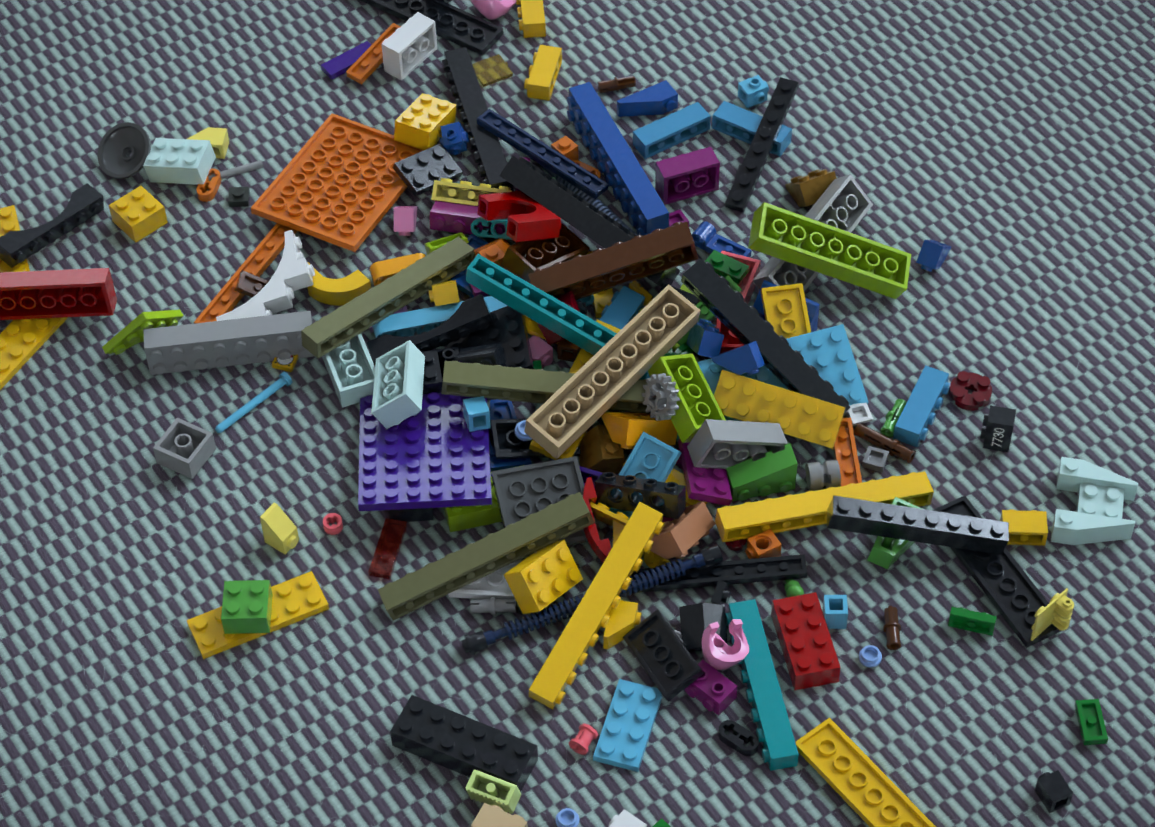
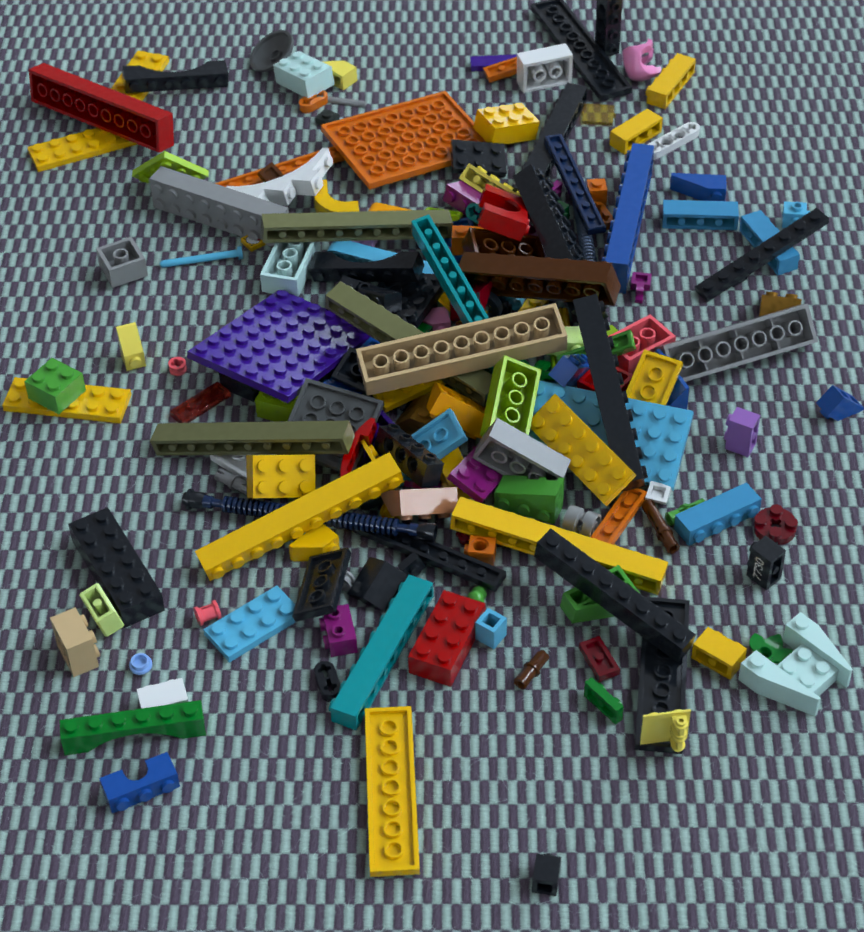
camera: 35 degrees right, 5 degrees down
(138, 214) = (243, 97): yellow brick -> none
(398, 384) = (301, 287): light aqua brick -> none
(405, 220) = (429, 184): bright pink slope -> none
(444, 293) = (399, 242): yellow slope -> none
(454, 138) = (518, 145): blue brick -> none
(476, 413) = (341, 336): medium azure brick -> none
(582, 66) = (687, 131): none -> white beam
(616, 84) = (687, 164): reddish brown axle -> none
(660, 397) = (483, 387): light grey gear -> none
(687, 175) = (677, 250): magenta brick -> none
(707, 239) = (654, 304): blue plate -> none
(719, 653) = (366, 605): bright pink piece -> none
(727, 266) = (640, 326): green plate -> none
(741, 359) = (576, 392): blue slope -> none
(829, 250) = (734, 351): lime brick -> none
(870, 656) = (492, 680): light blue plate -> none
(875, 459) = (640, 534): flat silver plate -> none
(883, 321) = (741, 431): none -> medium lavender brick
(936, 587) = (599, 658): none -> dark red plate
(1053, 500) = (770, 647): none -> green plate
(1091, 722) = (634, 839): green plate -> none

